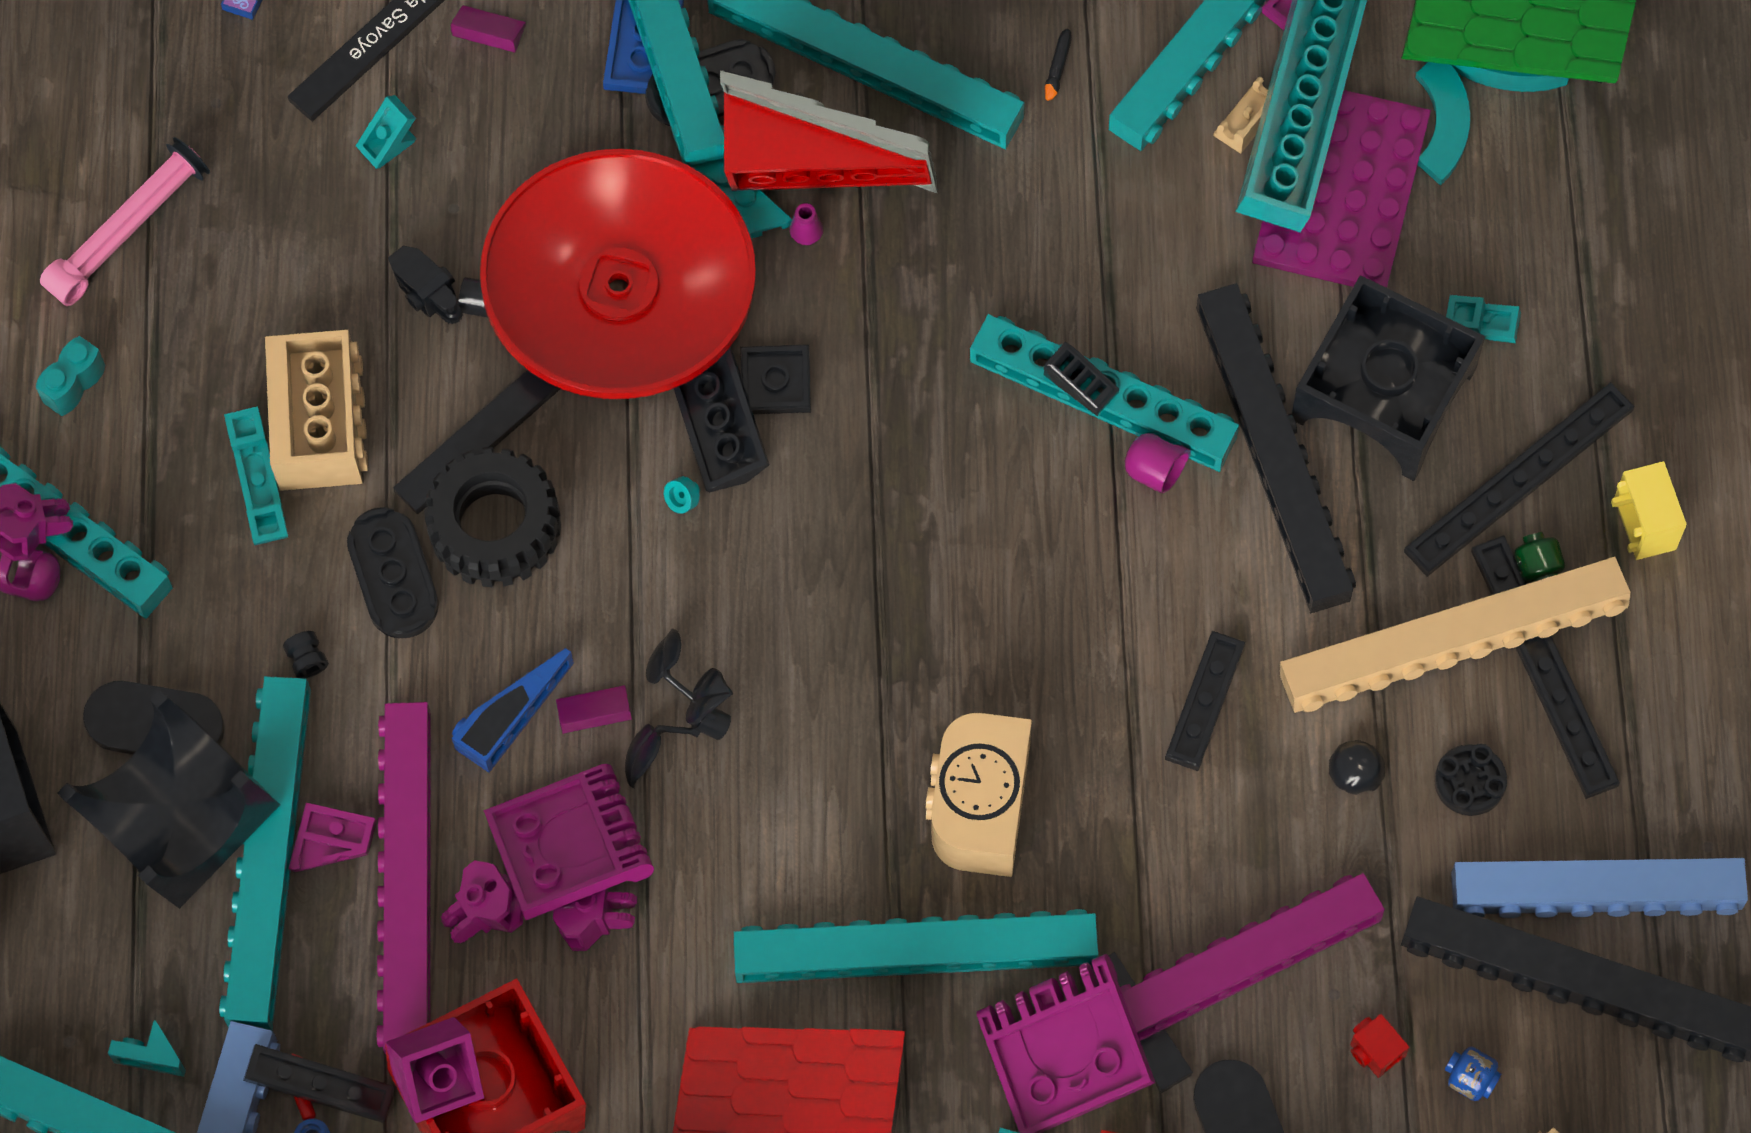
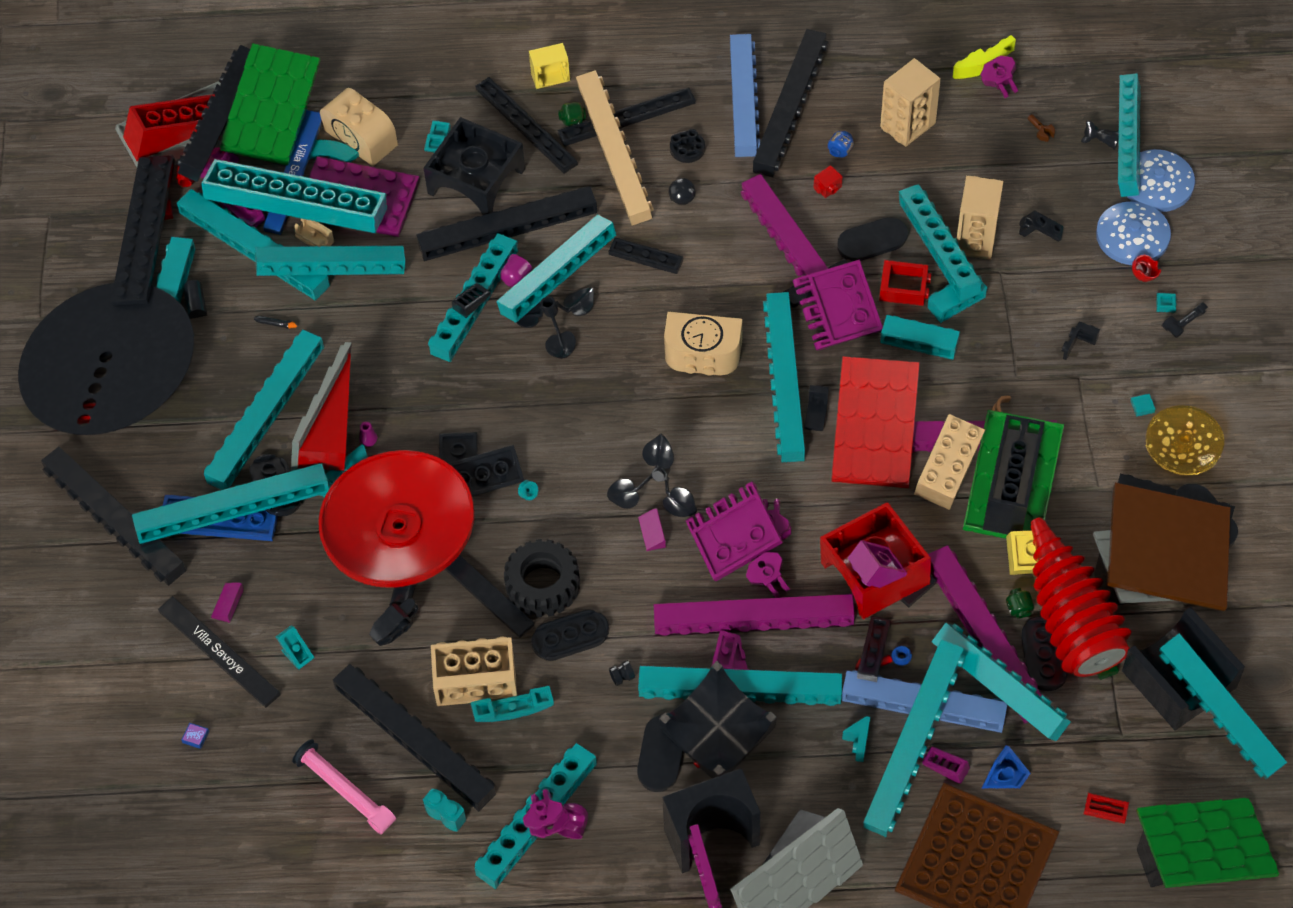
camera: 90 degrees left, 10 degrees down
(209, 326) = (415, 737): none -> black brick
(501, 719) = (663, 574): slope -> none
(838, 1004) = (816, 407): none -> black bracket
(1066, 491) = (563, 343): none -> black plant
(1162, 533) = (556, 268): none -> teal brick
(1168, 137) = (329, 260): none -> teal brick
(1420, 77) = (301, 153): none -> blue tile
(1488, 171) = (359, 125): none -> tan brick

